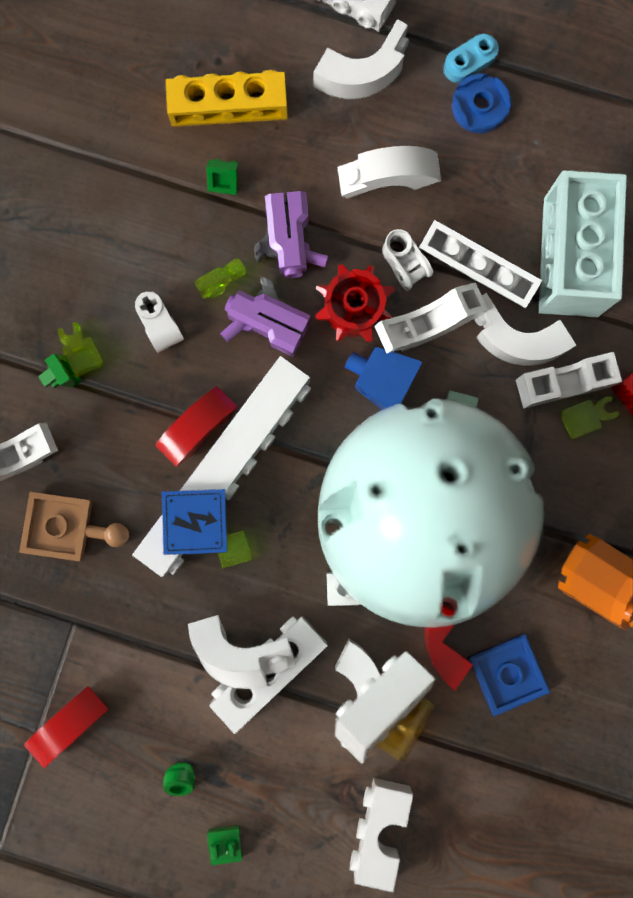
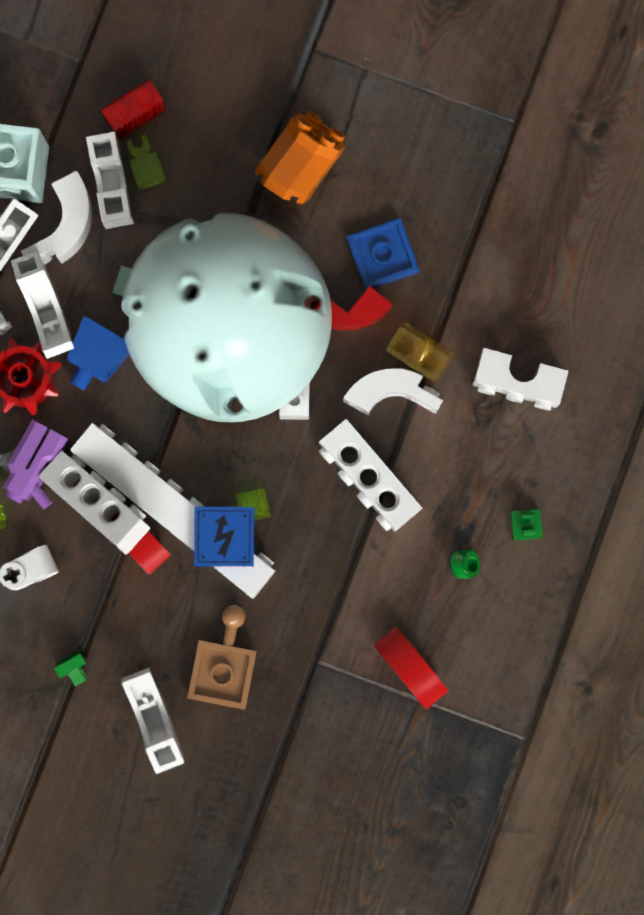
camera: 90 degrees left, 0 degrees up
(79, 352) = (54, 647): clear neon green plate -> none
(234, 665) = (357, 504): white arch -> none
(250, 348) = (125, 530): none -> white brick
(382, 705) = (399, 370): white wedge -> none

